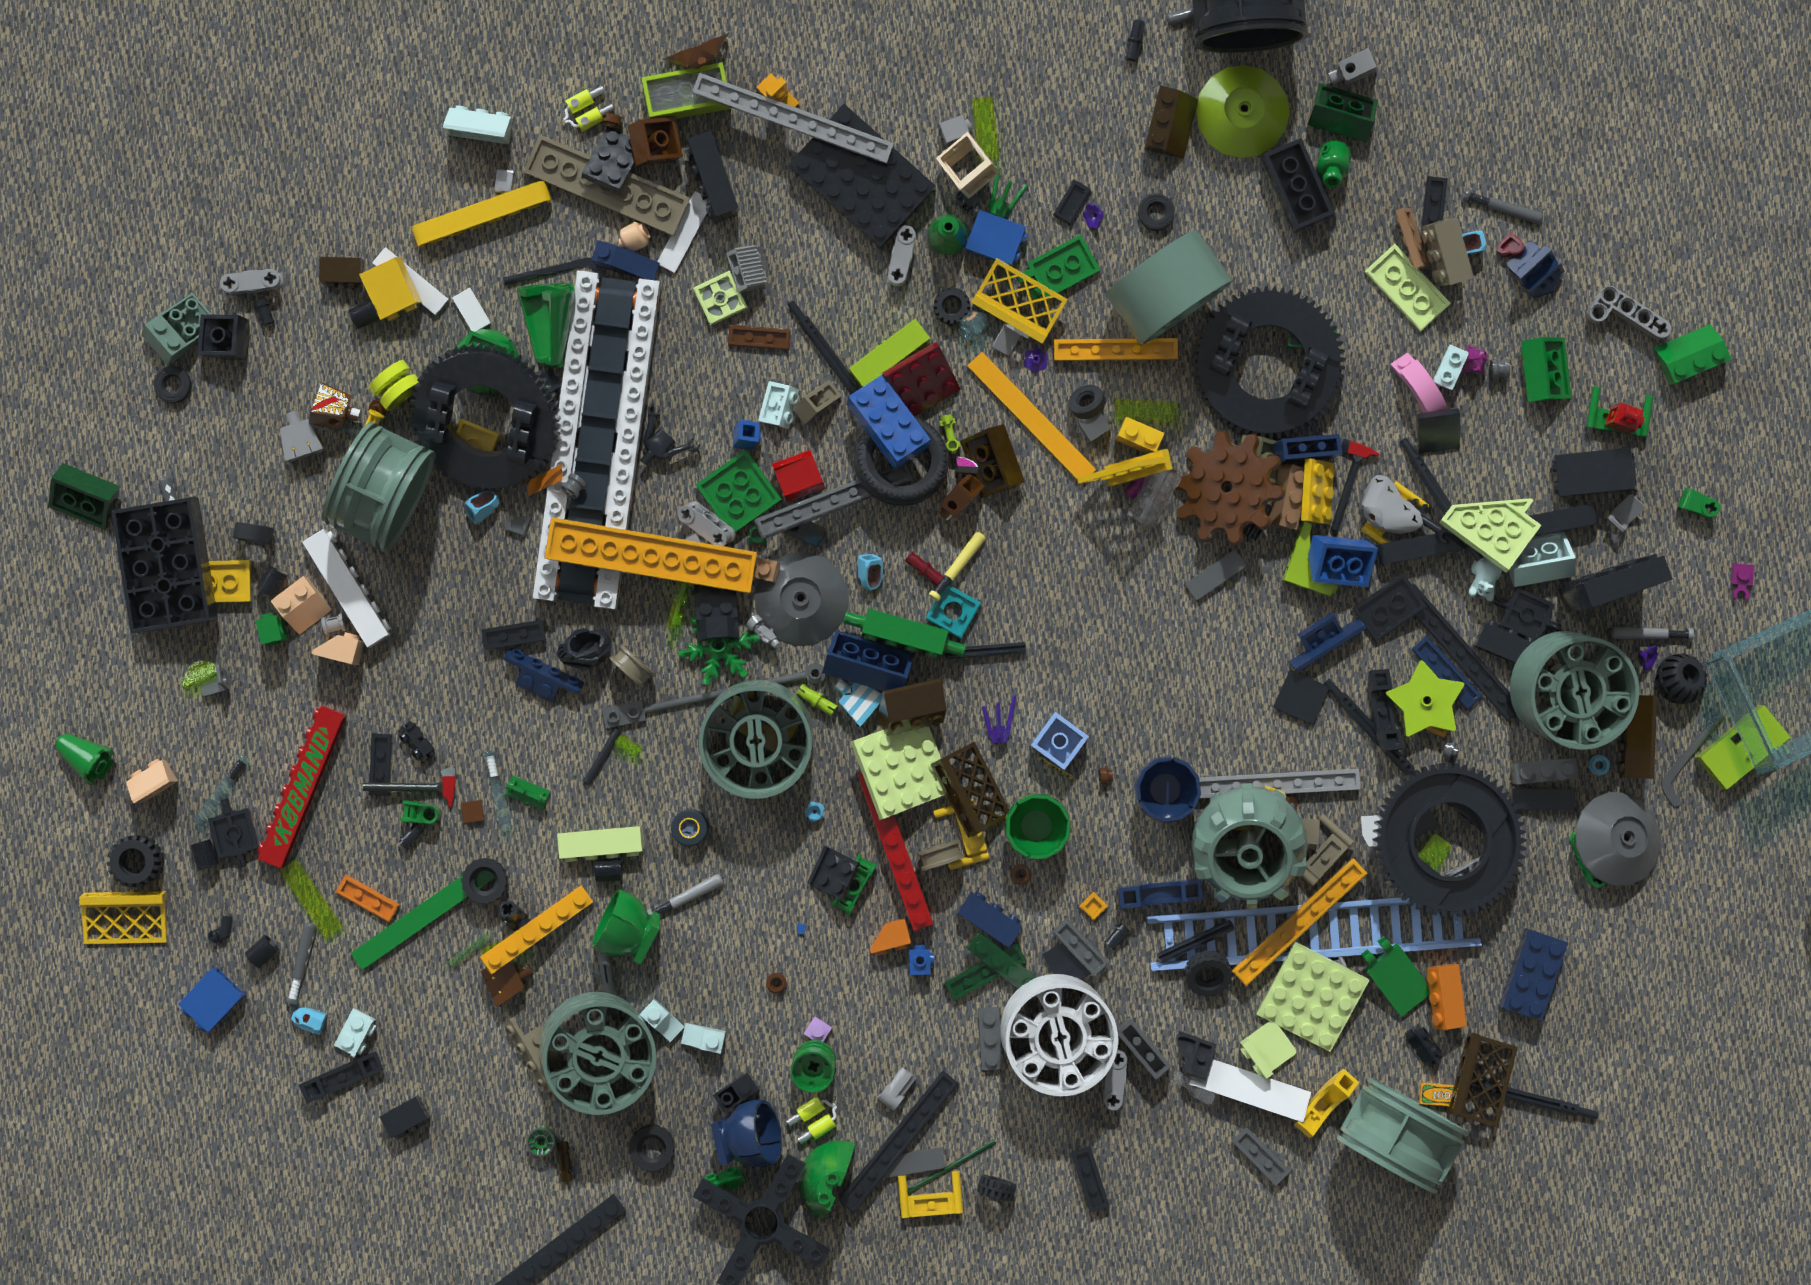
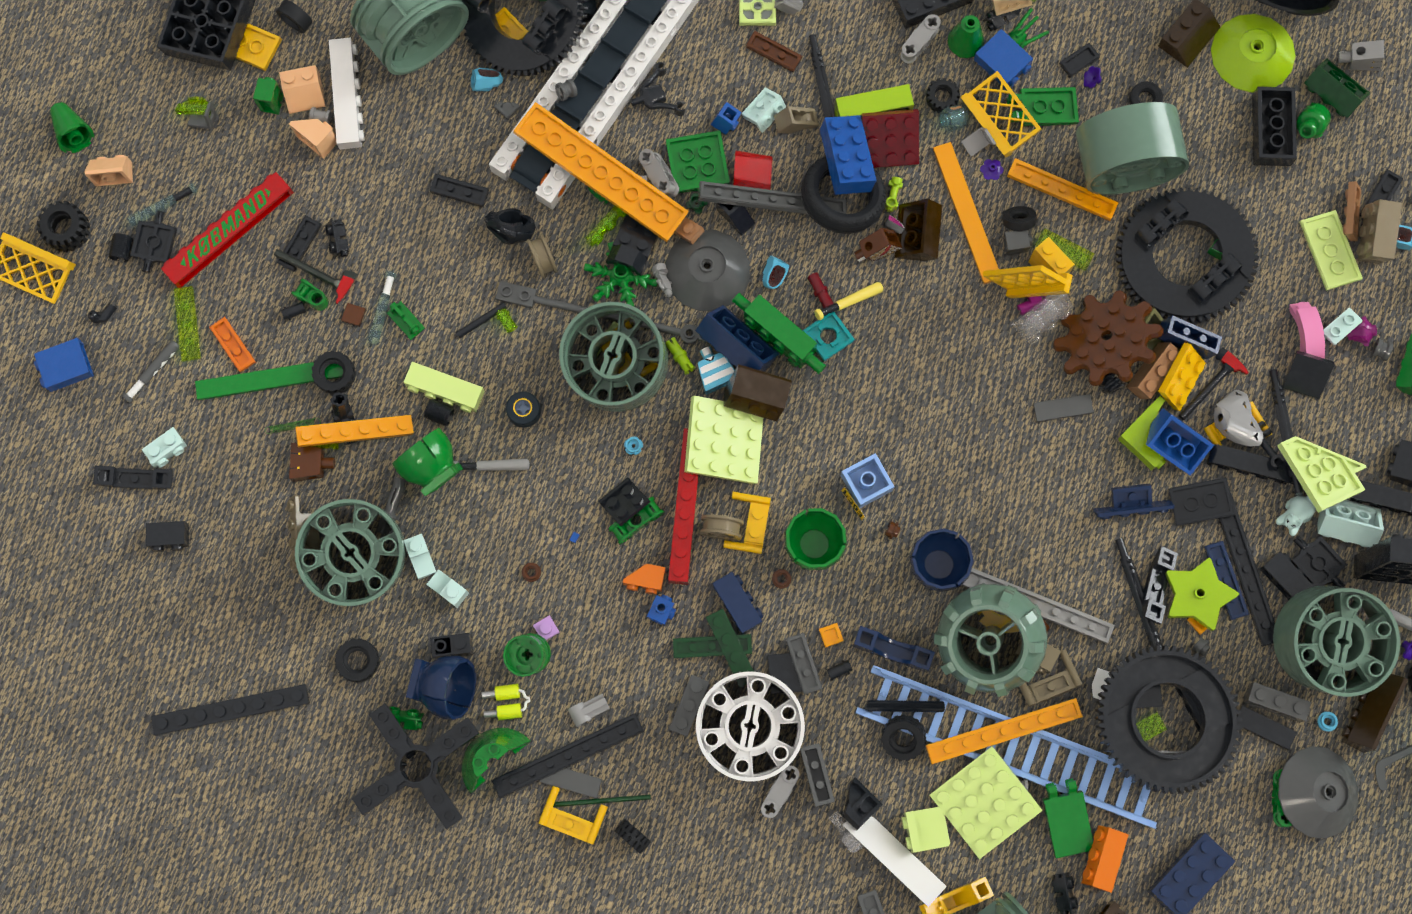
camera: 30 degrees right, 10 degrees down
(261, 951) = (124, 345): black piece -> none
(271, 582) = (289, 60): black piece -> none
(309, 1020) = (133, 419): medium azure rock -> none
(532, 1141) = (261, 606): wheel -> none
(540, 677) = (463, 234): dark blue bracket -> none
(545, 480) = (546, 78): orange sticker -> none
(564, 1161) = (278, 637): dark brown axle -> none
(959, 795) = (760, 485): dark brown fence -> none
(990, 650) = (842, 381): black axle -> none
(999, 733) = (819, 452): dark purple plant -> none
(1090, 1179) = (717, 869): black plate -> none
(1301, 696) = (1091, 542): black piece -> none

